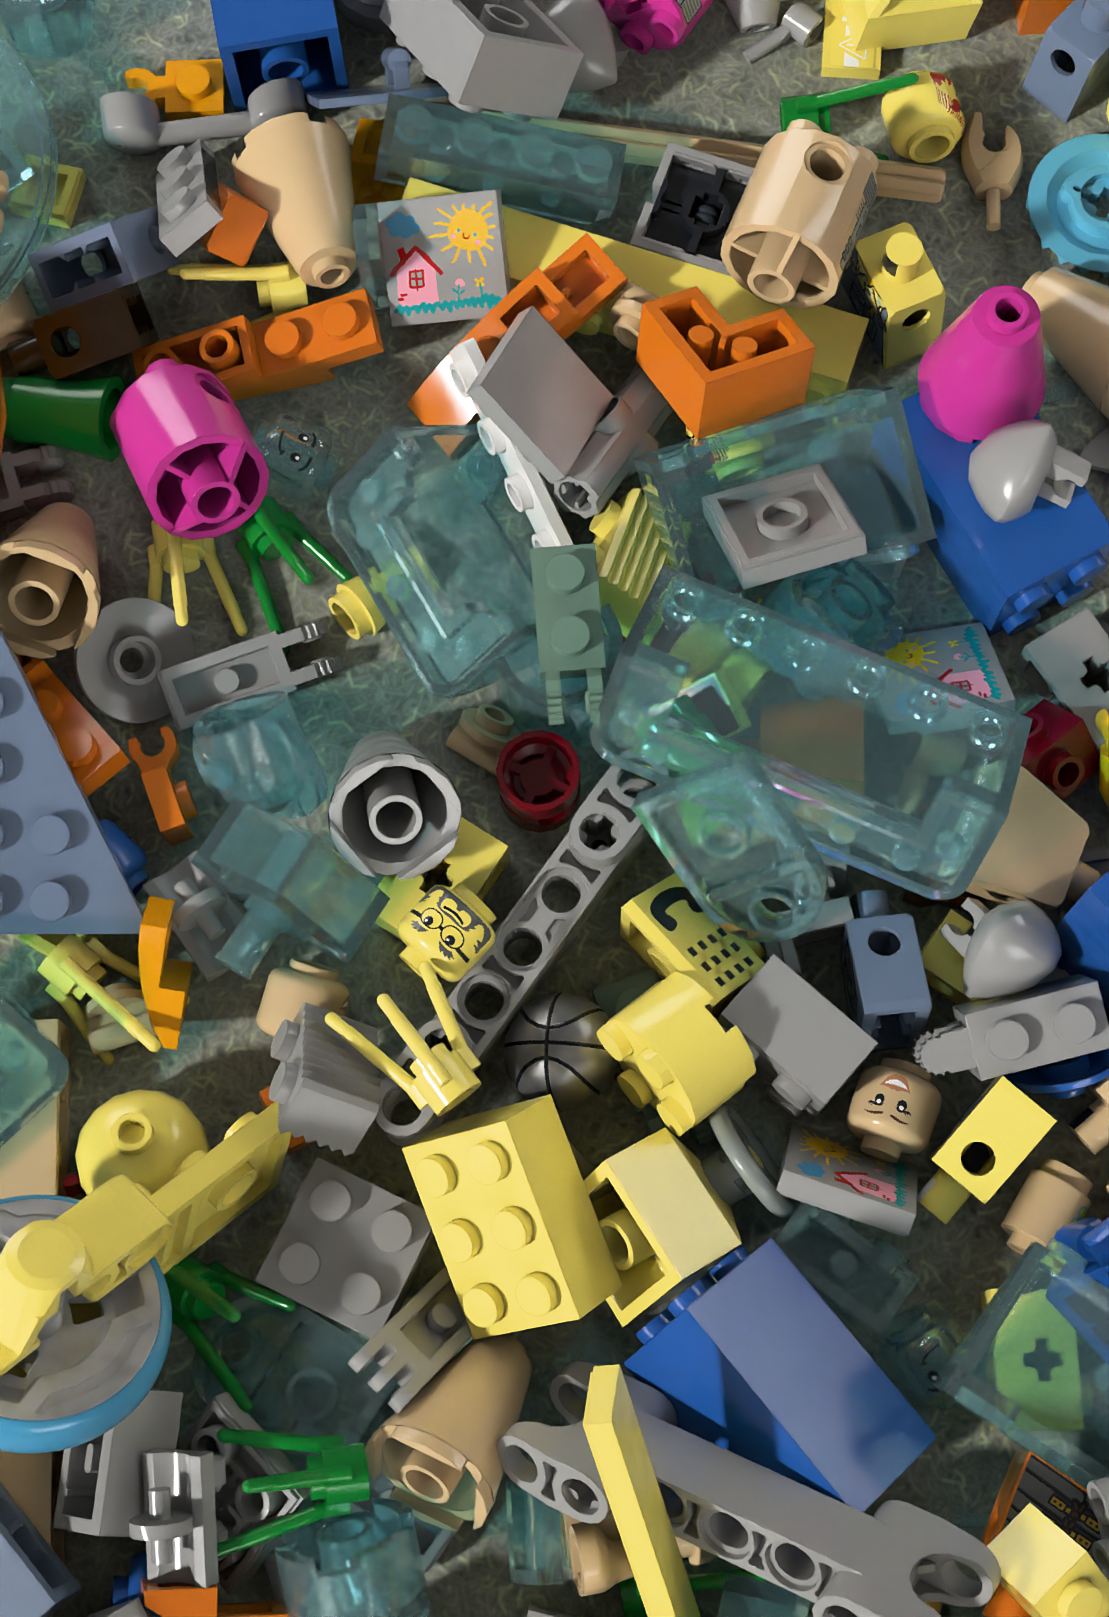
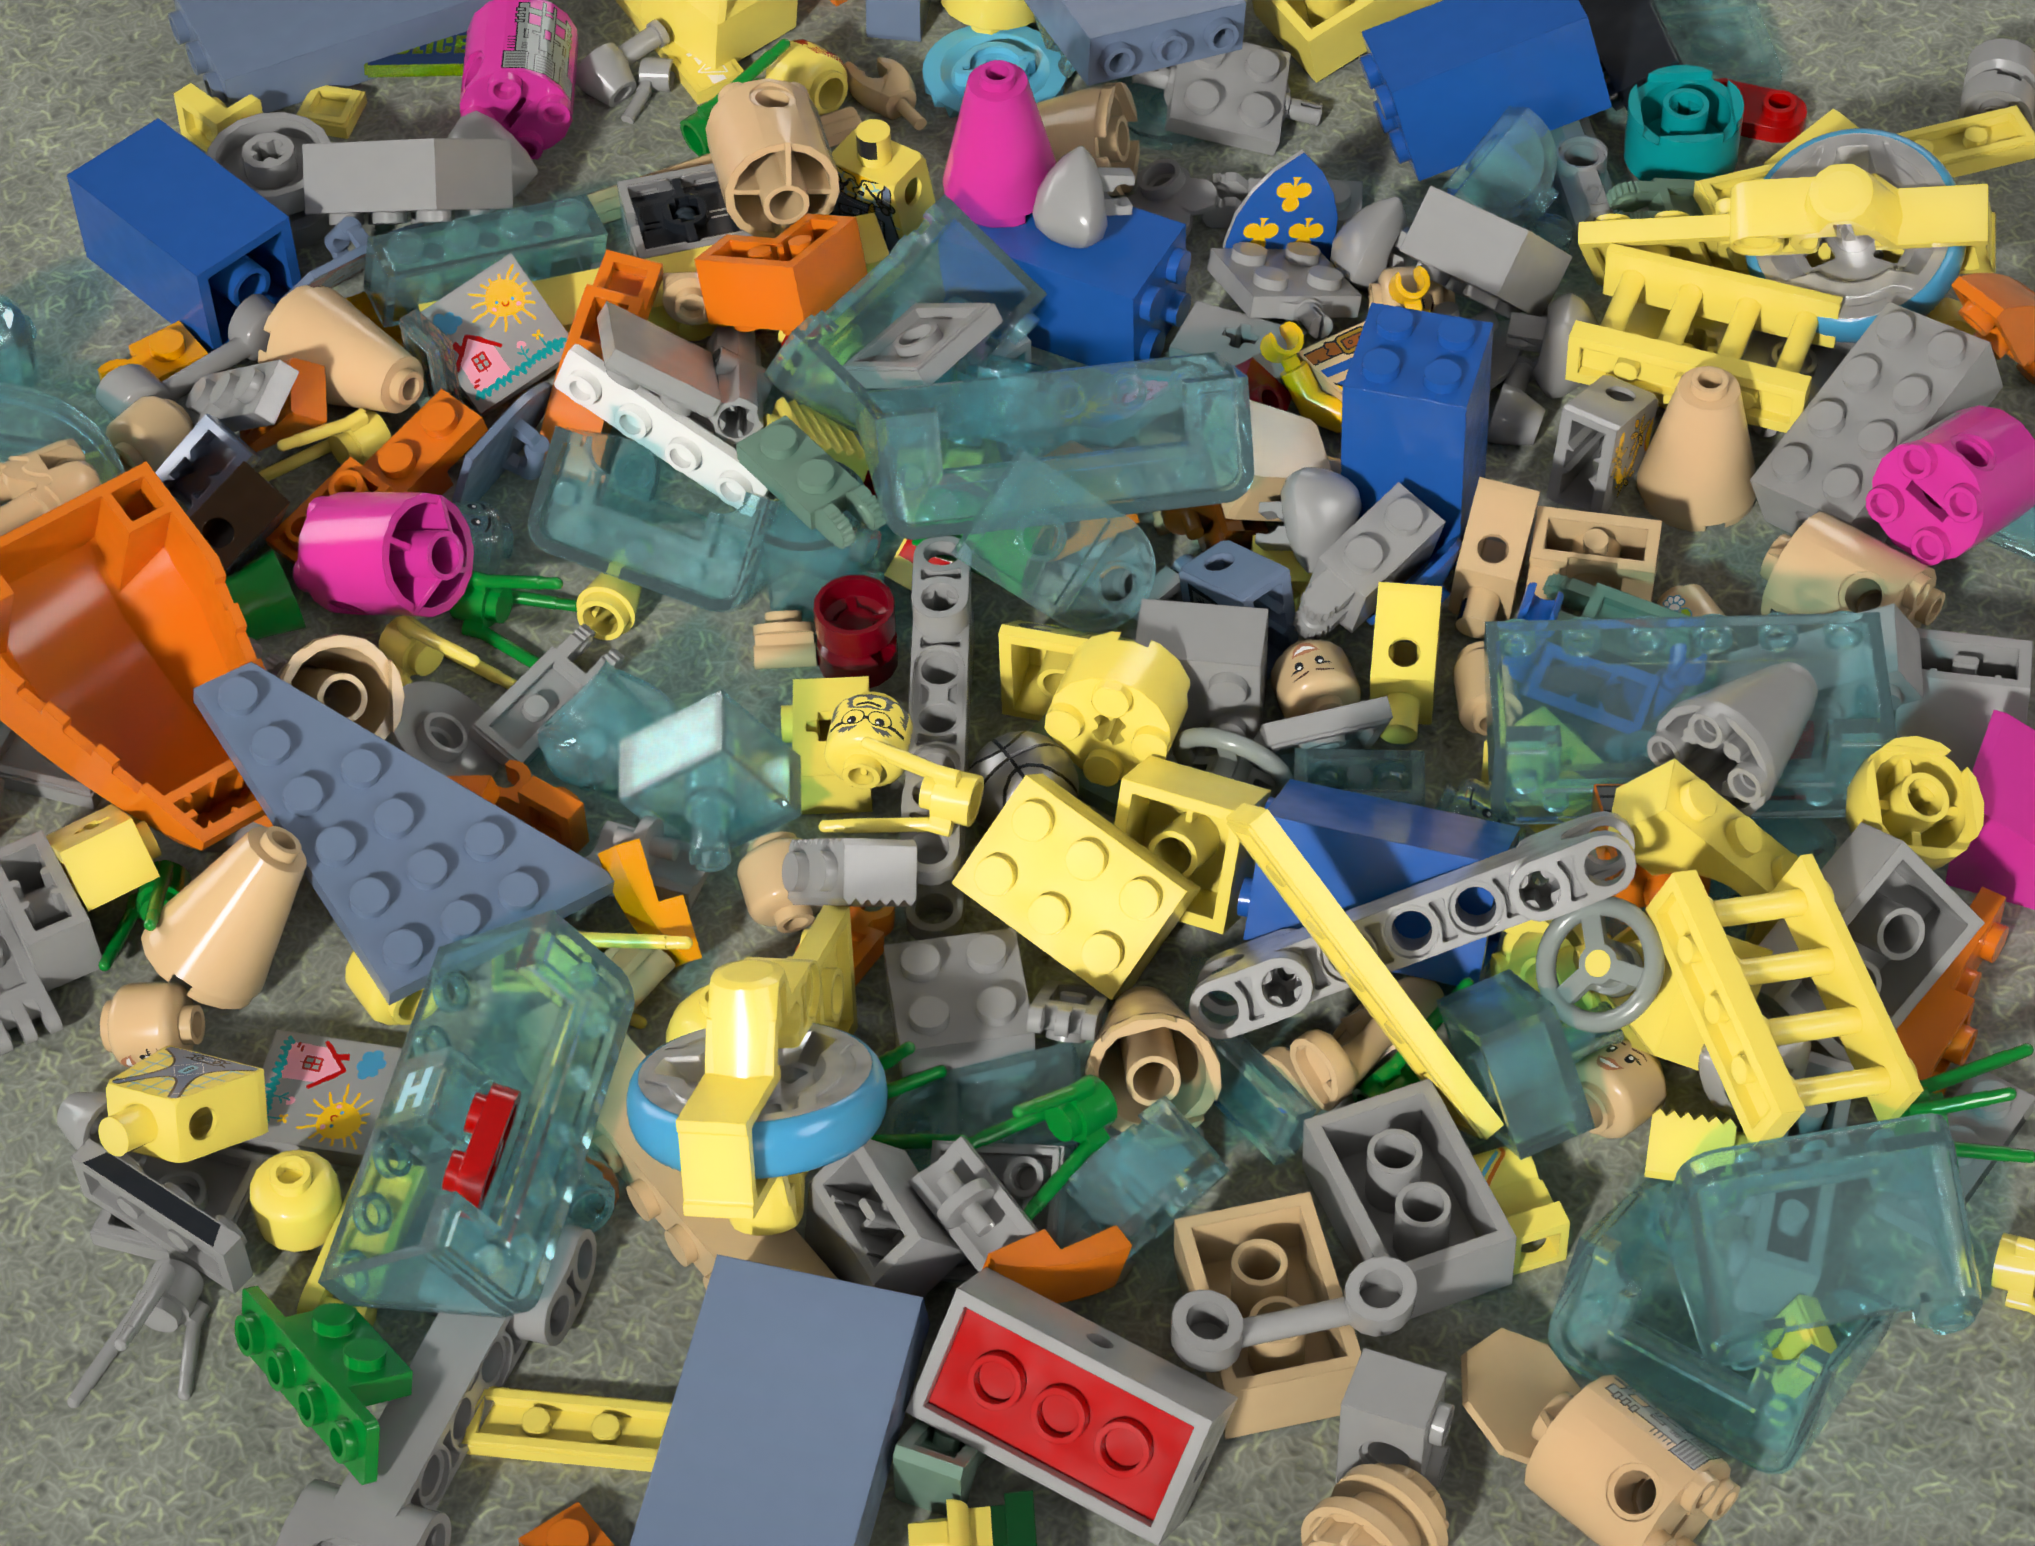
camera: 35 degrees left, 25 degrees down
(110, 179) = (148, 431): none -> tan head
(384, 381) = (503, 442): none -> sand blue shield
(393, 809) = (766, 664): light grey cone -> none

